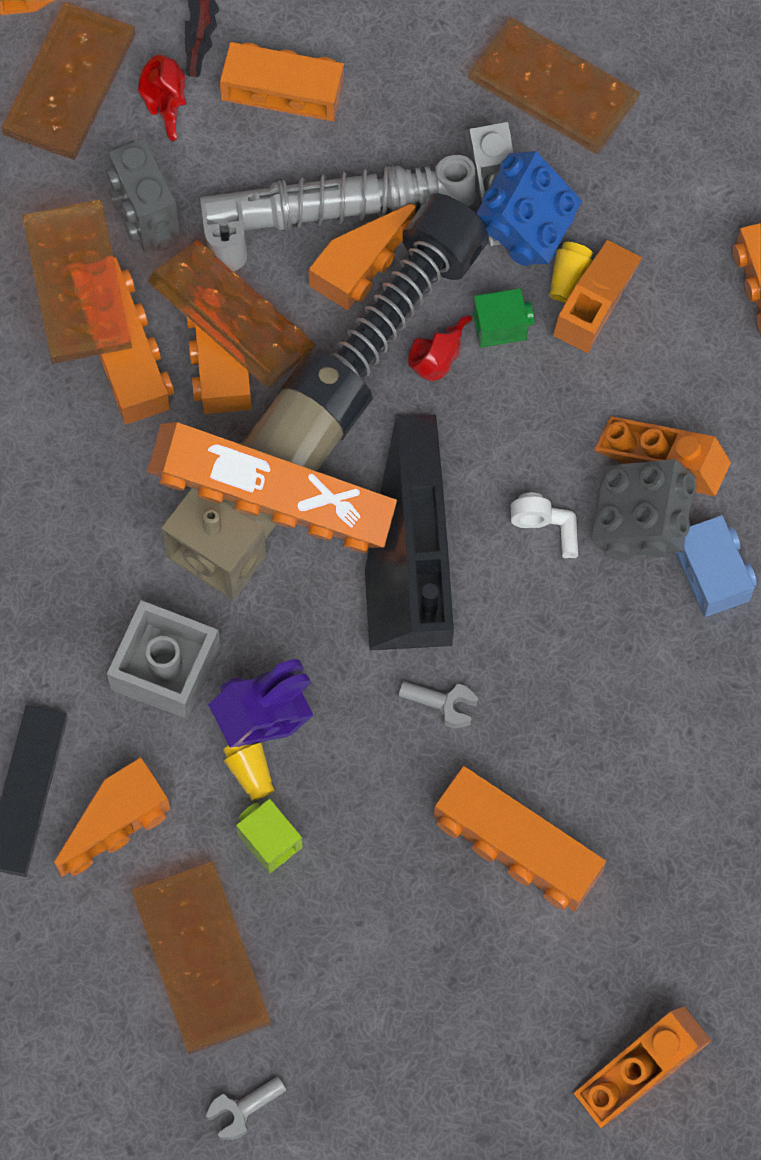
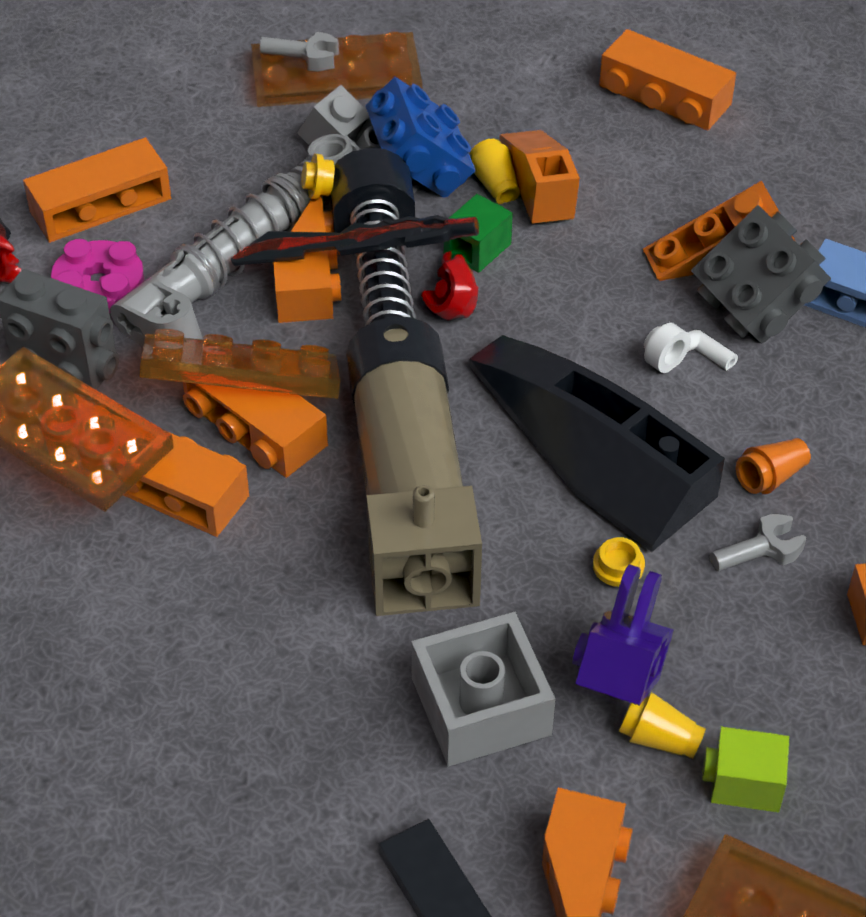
camera: 40 degrees left, 20 degrees down
(223, 177) = (114, 259): none -> dark pink plate
(270, 486) = (440, 441): orange brick -> none
(339, 642) = (614, 557): none -> yellow plate
(389, 272) = (357, 238): none -> black sword
(415, 195) = (318, 176): none -> yellow plate
(507, 653) = (770, 465): none -> orange cone
(533, 58) = (316, 52): none -> light grey bar

